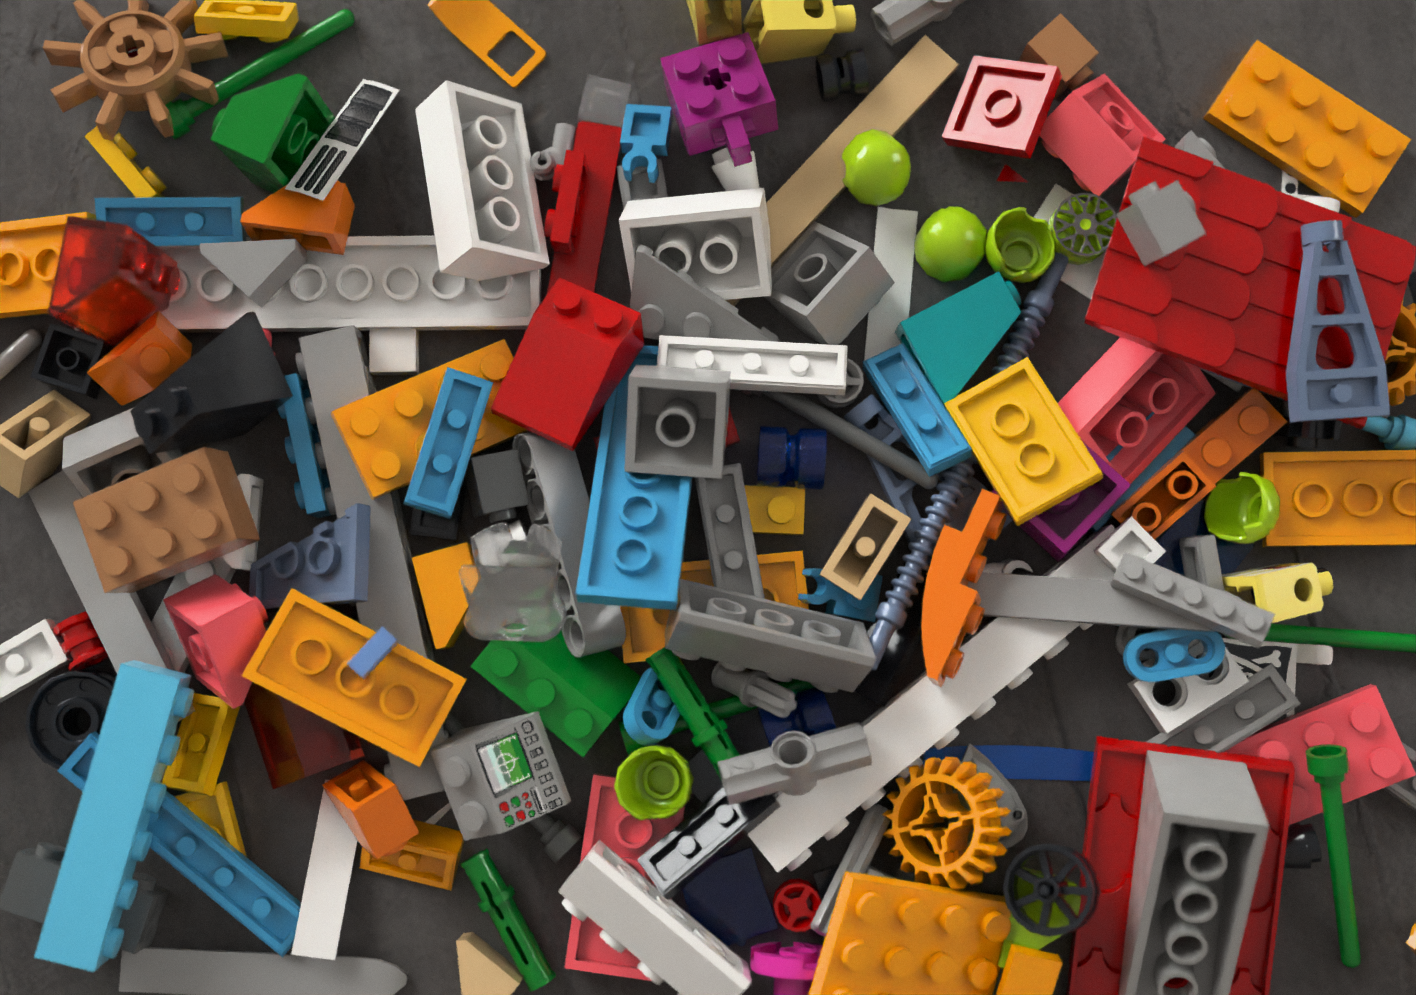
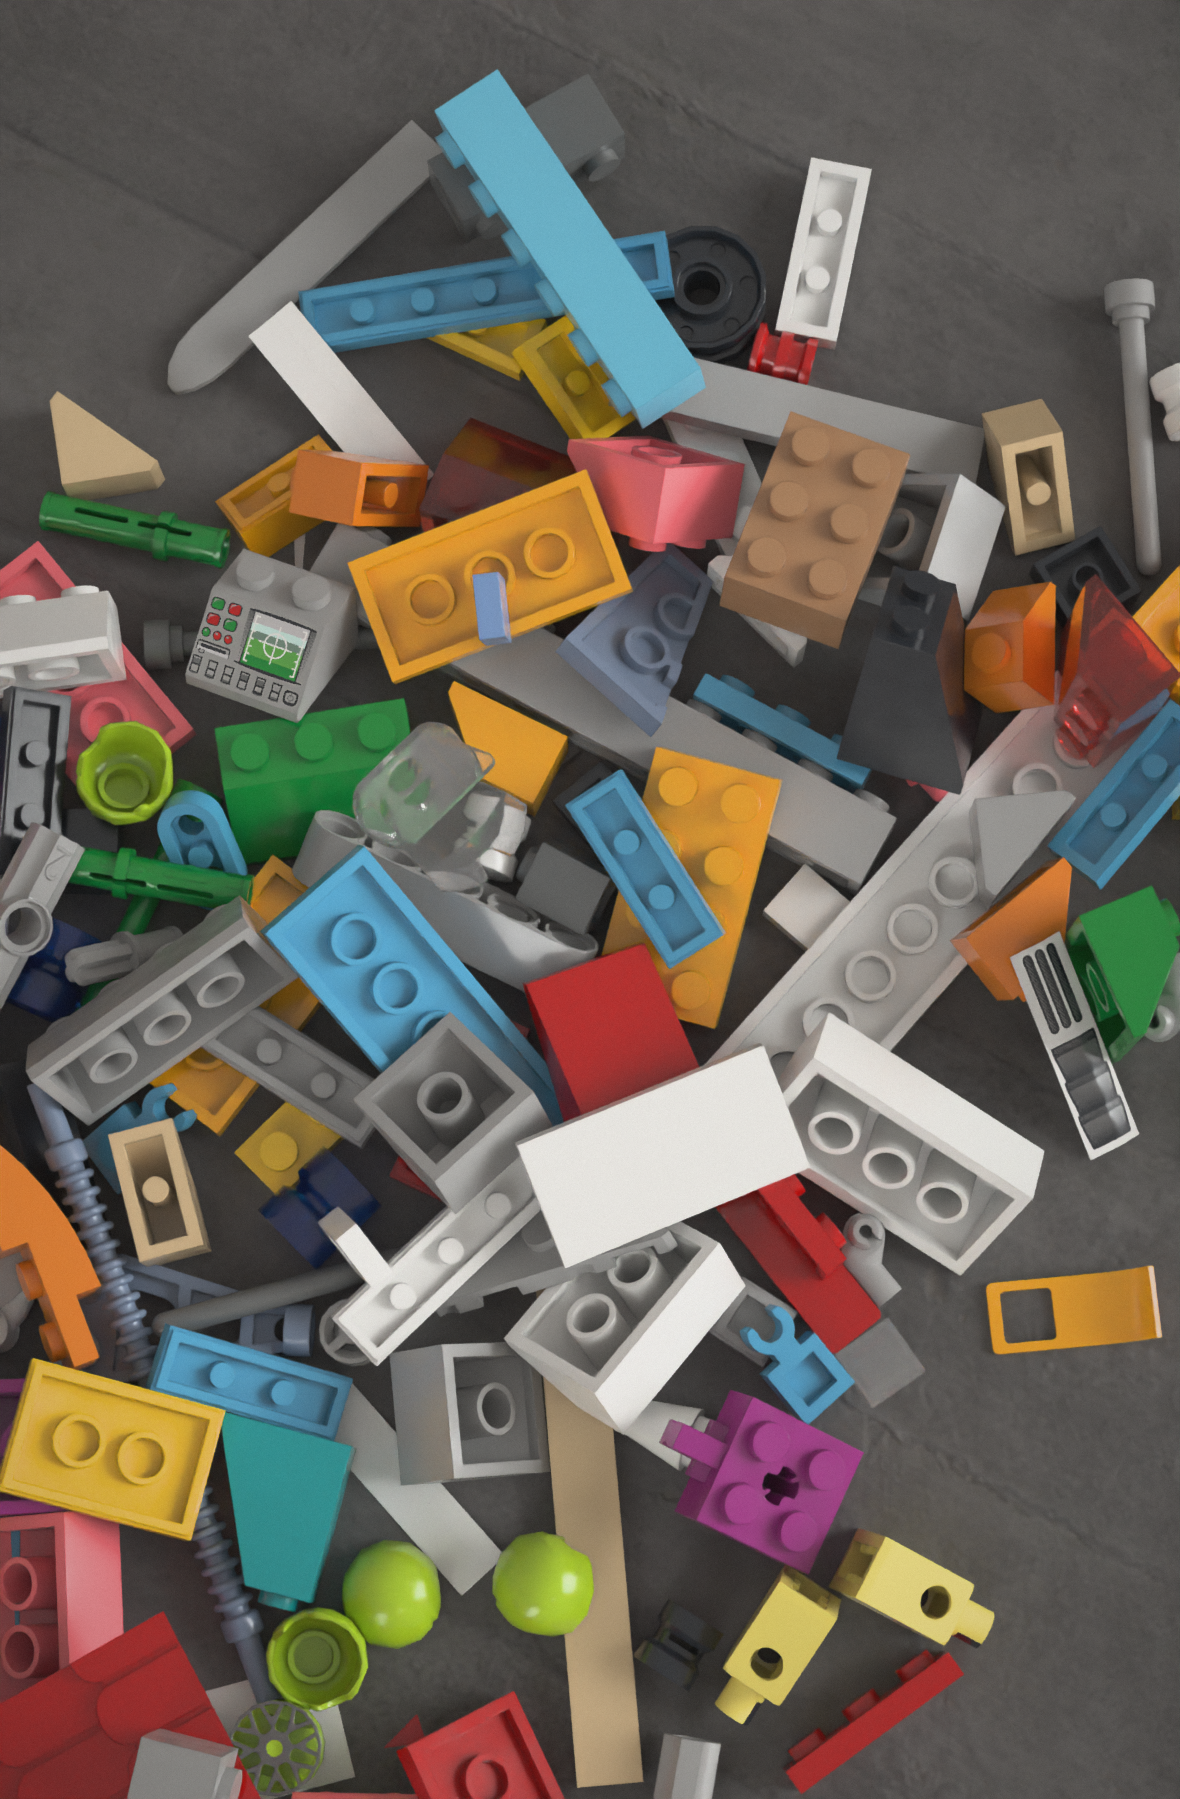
camera: 135 degrees right, 5 degrees down
(598, 286) = (662, 1155): none -> white tile
(797, 410) = (355, 1247): none -> white tile

